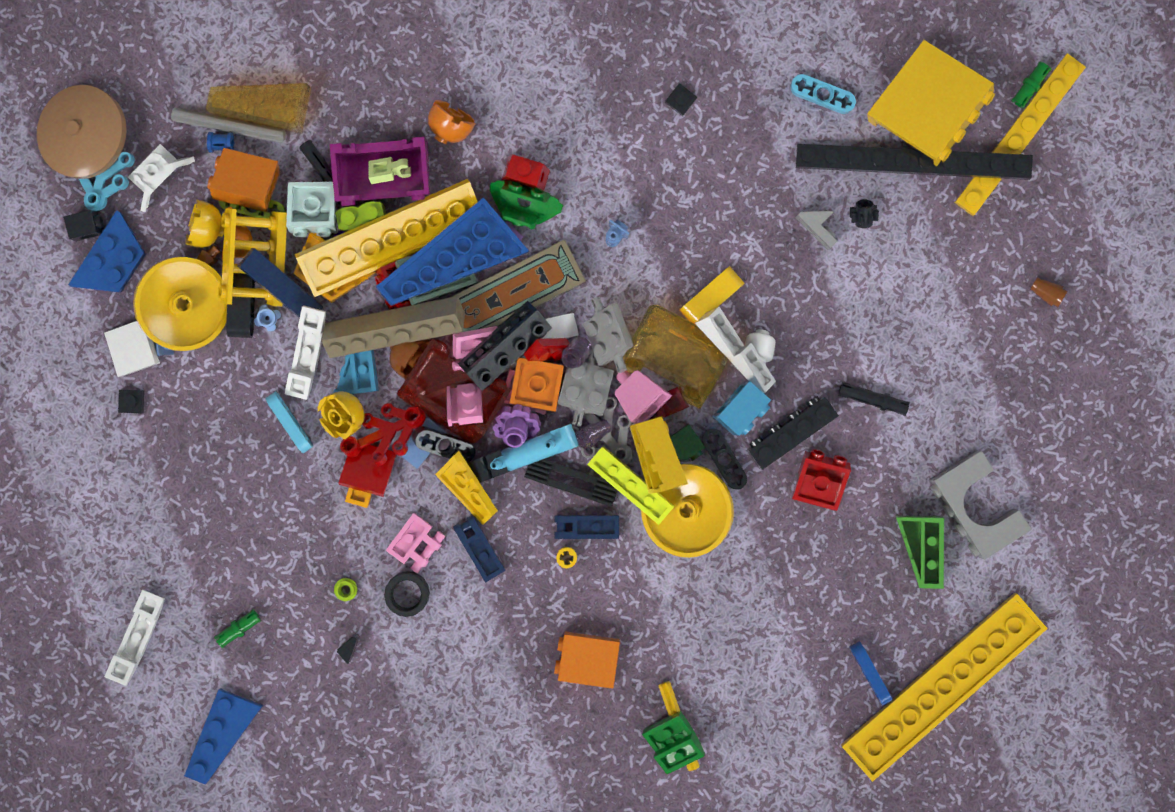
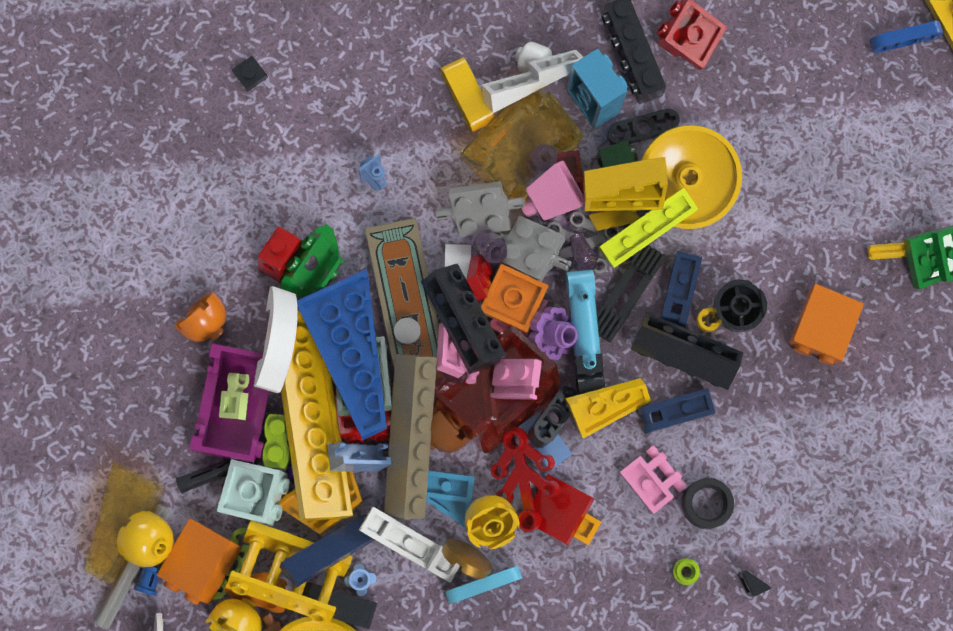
camera: 85 degrees left, 10 degrees down
(248, 130) = (145, 539): none -> yellow cylinder
(305, 402) = (472, 561): none -> pearl gold tile
(365, 287) = (357, 457): none -> medium blue hinge
(443, 193) = (279, 340): none -> white slope
(482, 300) = (407, 331): none -> light grey tile
(532, 545) = (687, 351): none -> black brick
(581, 581) = (740, 306): none -> black cylinder
(629, 449) = (612, 219): none -> yellow sticker
(672, 370) = (534, 158): none -> brick

